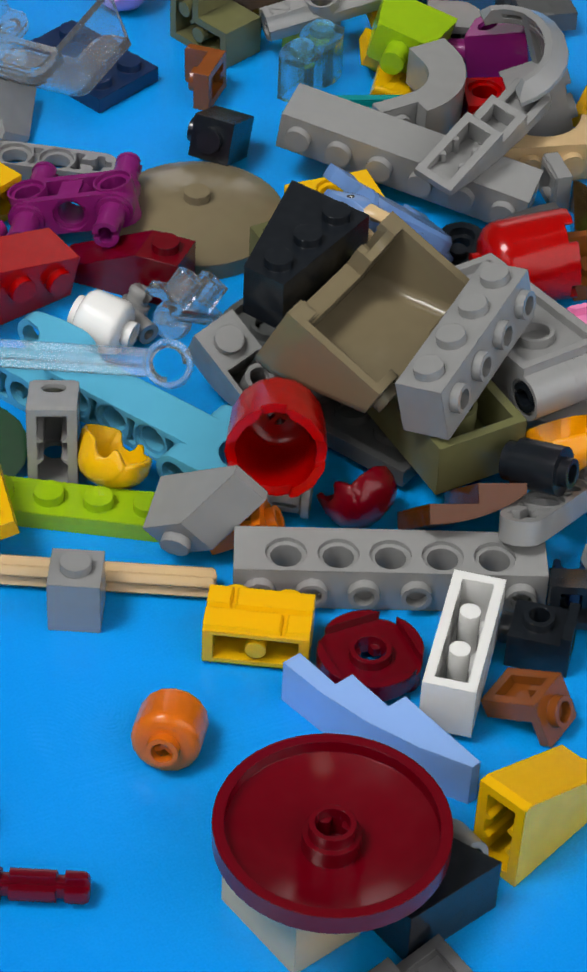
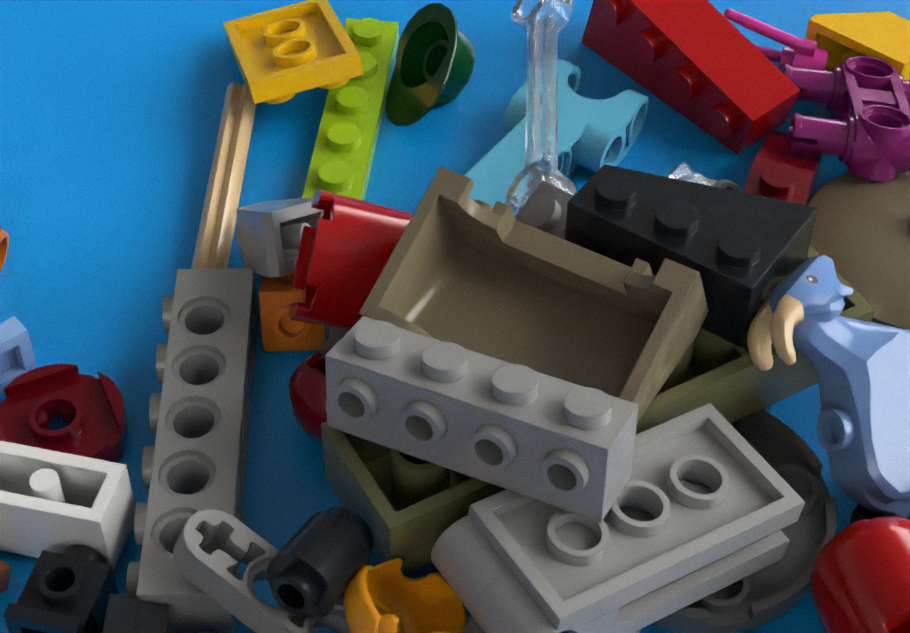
camera: 90 degrees right, 5 degrees up
(53, 421) = (434, 121): light grey torso -> none
(76, 590) = (177, 160): light grey brick -> none
(105, 318) = (651, 147): white head -> none
(107, 461) = (396, 168): yellow hair -> none
(256, 625) = (113, 313): yellow brick -> none
(462, 505) = (270, 483): reddish brown slope -> none

